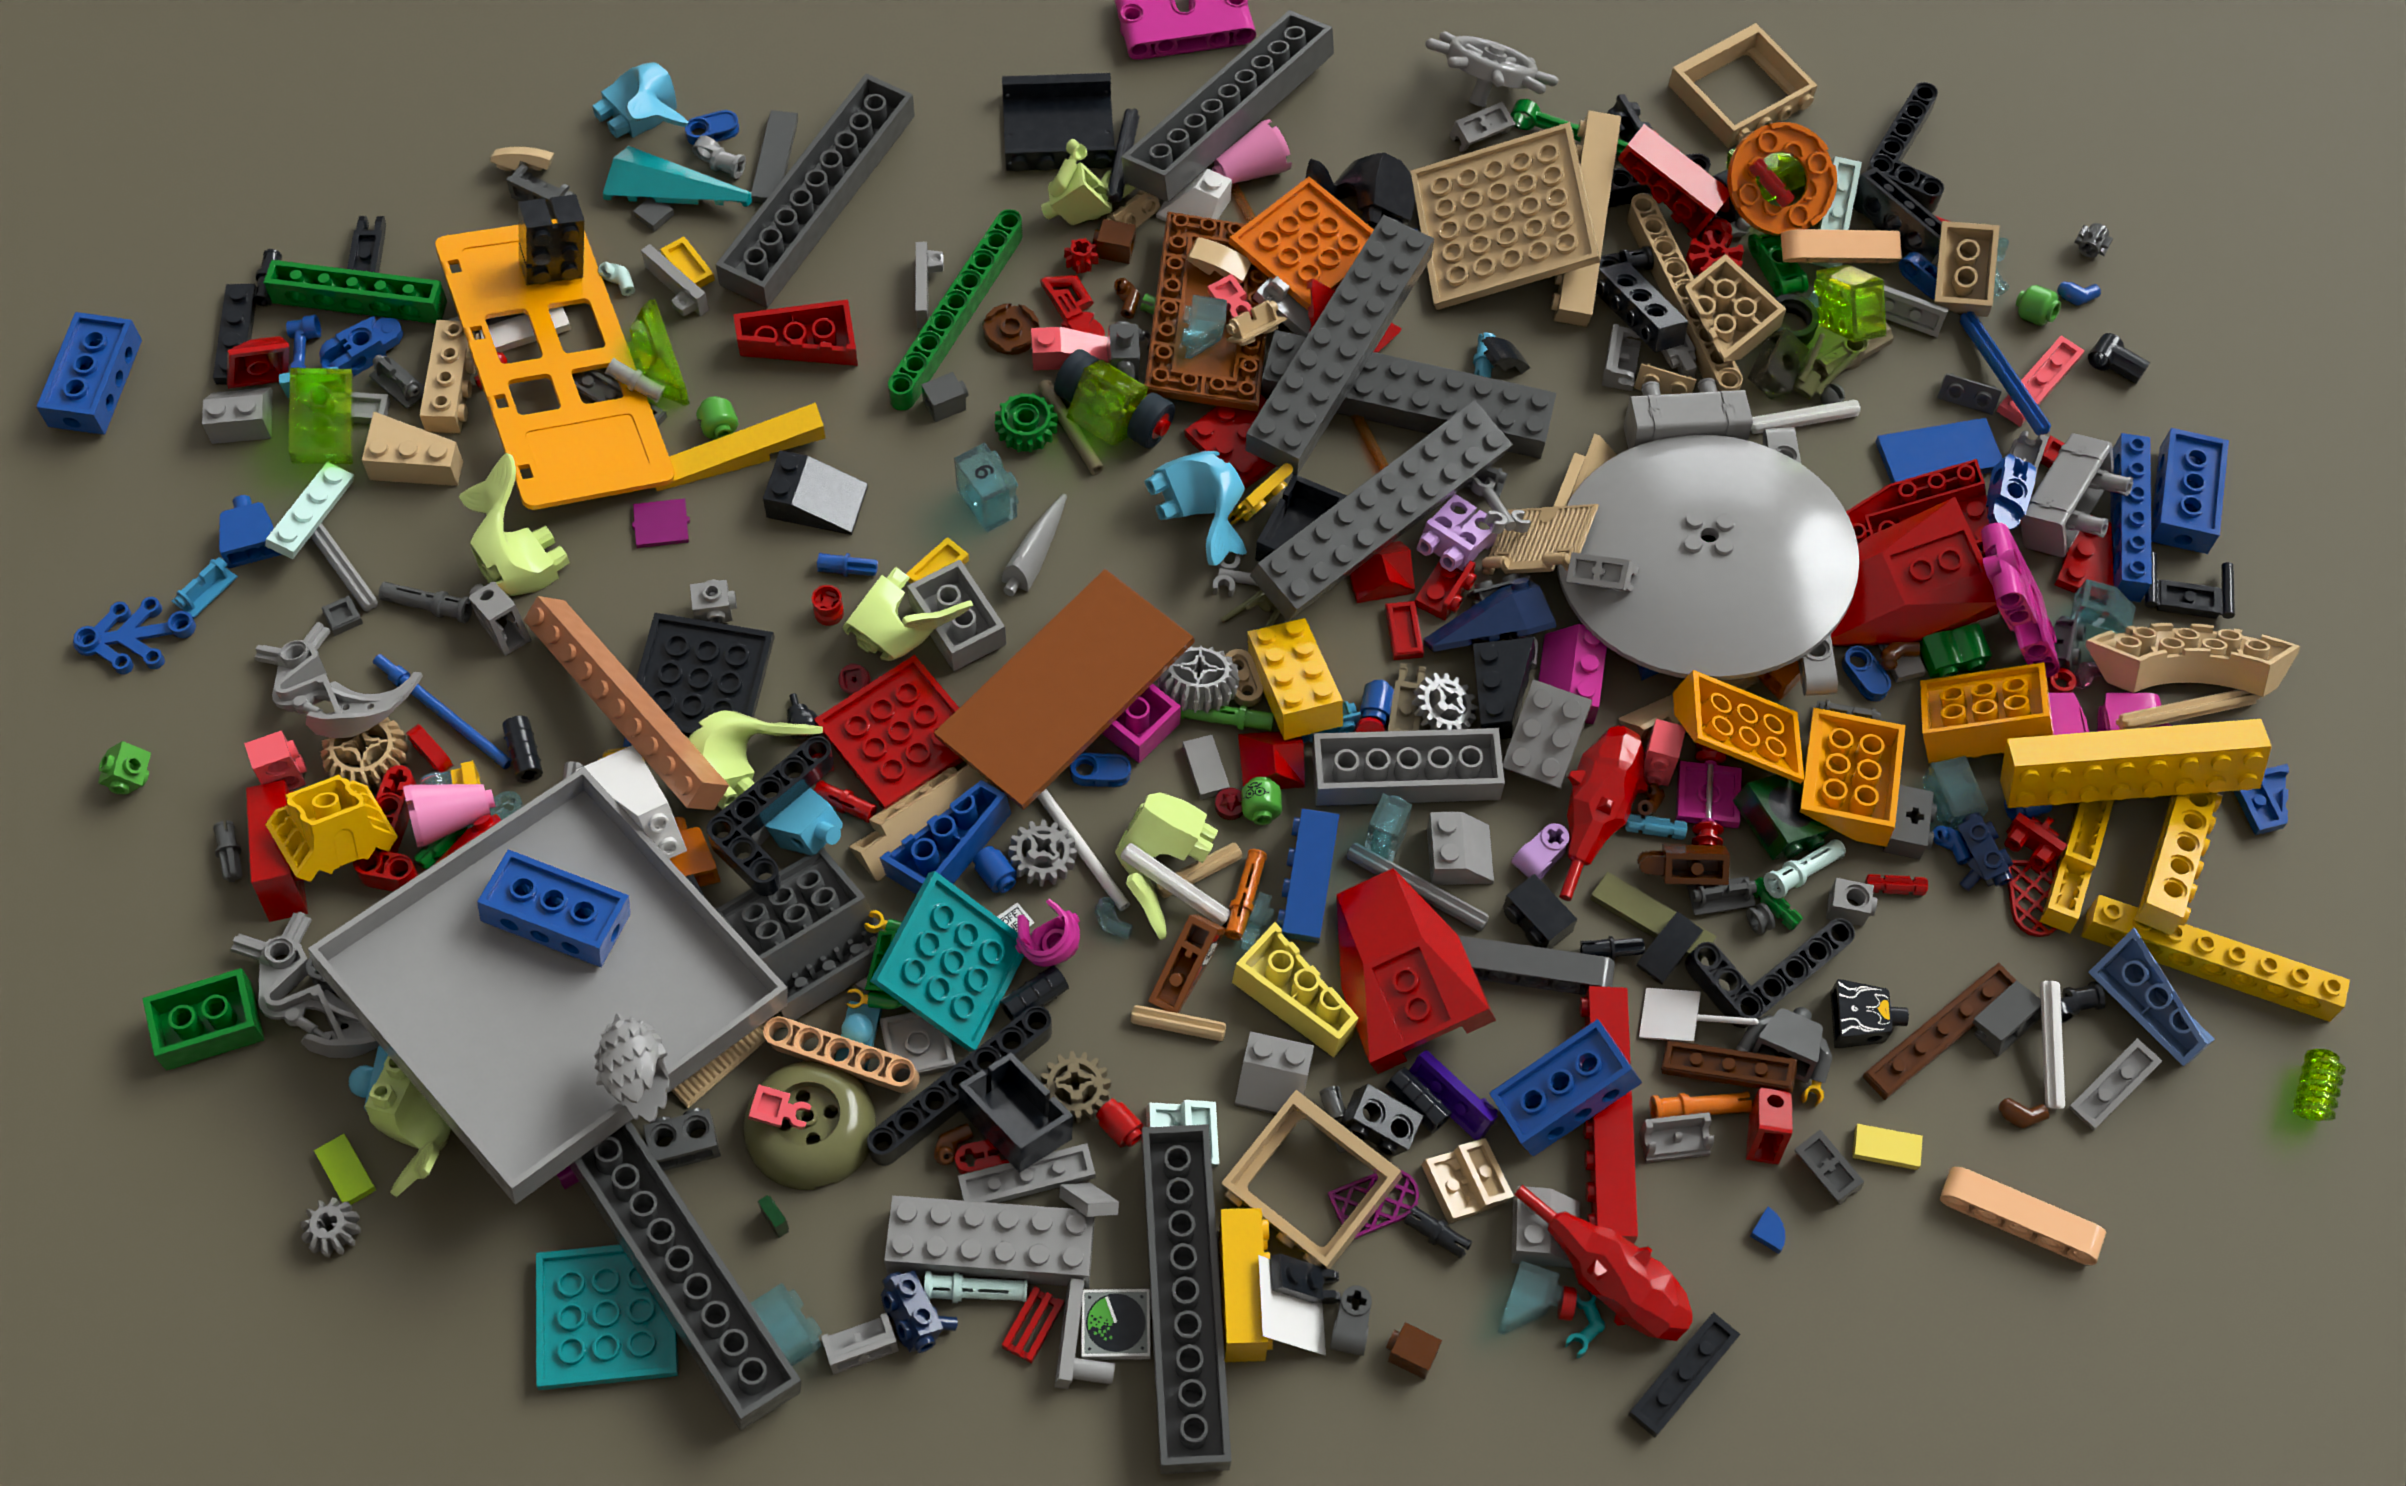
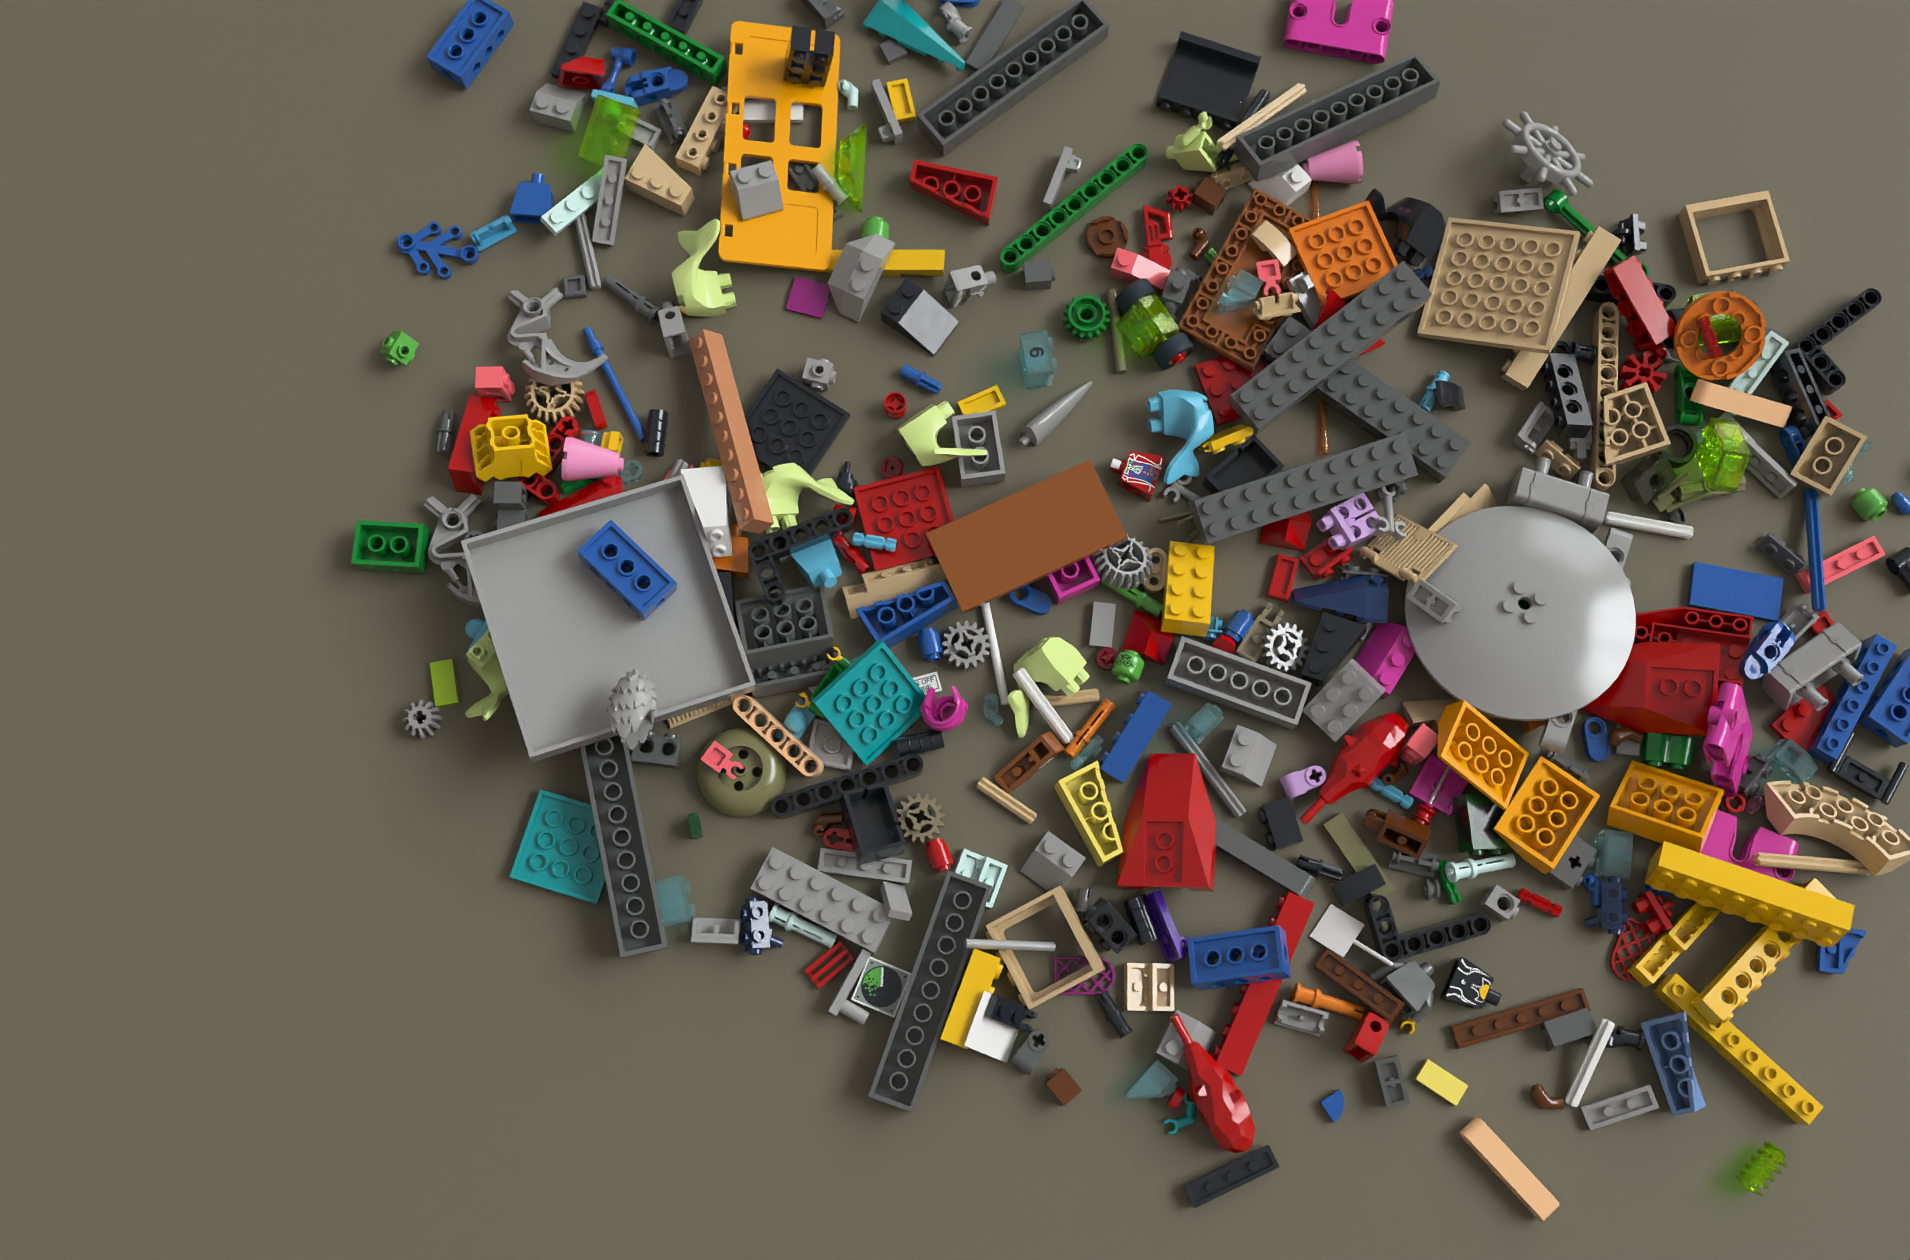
camera: 25 degrees right, 15 degrees up
(350, 891) = (512, 503): none -> dark grey brick
(351, 493) = (609, 200): none -> light grey plate
(543, 412) = (756, 190): none -> light grey slope
(715, 469) = (859, 273): none -> light grey wedge
(860, 436) = (967, 285): none -> light grey torso
(869, 771) = (873, 541): none -> medium azure axle
(1149, 121) = (1262, 115): none -> tan axle
(1171, 573) = (1138, 473): none -> red torso
(1264, 1192) = (1009, 945): none -> light grey bar

